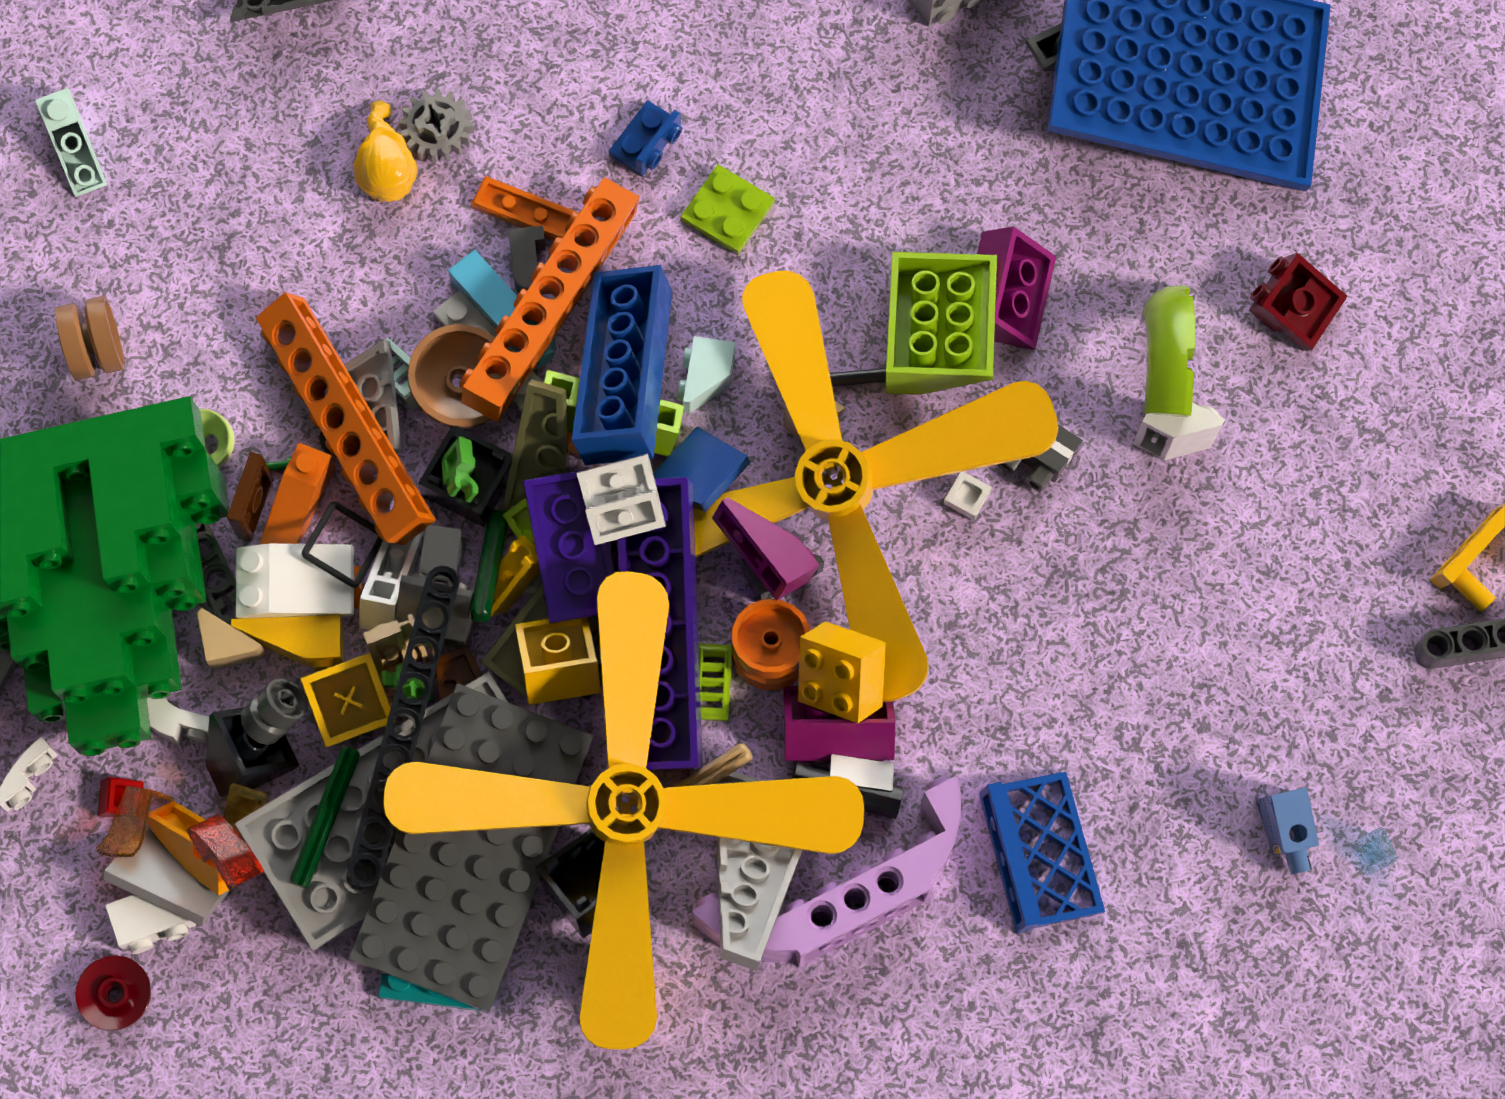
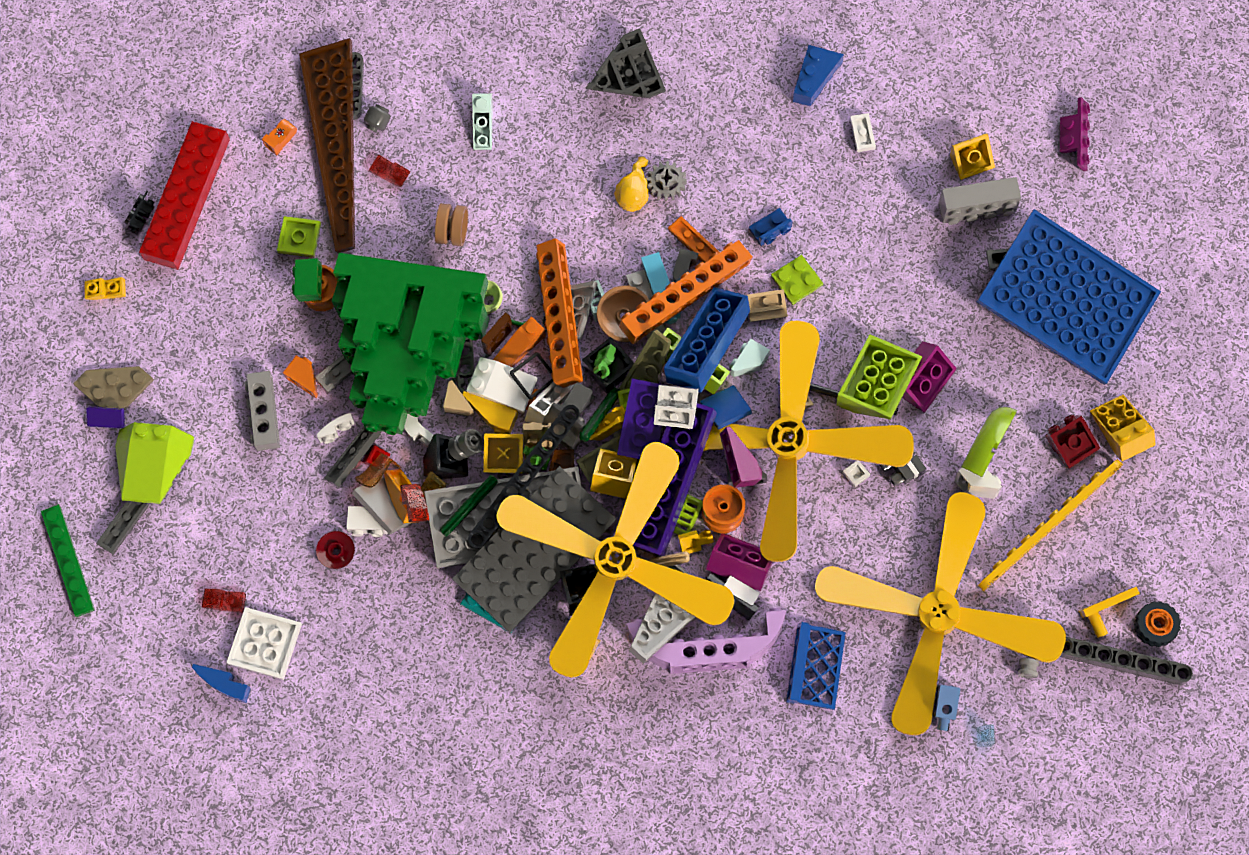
camera: 30 degrees right, 0 degrees up
(74, 815) = (351, 456): none -> dark grey plate
(698, 271) = (767, 305): none -> tan plate
(741, 721) = (692, 542): none -> yellow plate
(841, 672) = (751, 536): yellow brick -> none
(1235, 835) = (1025, 635): none -> yellow piece
(1316, 466) = (1044, 528): none -> yellow plate
(1370, 248) = (1124, 427): none -> yellow slope
(1393, 707) = (1028, 668): none -> light grey wheel

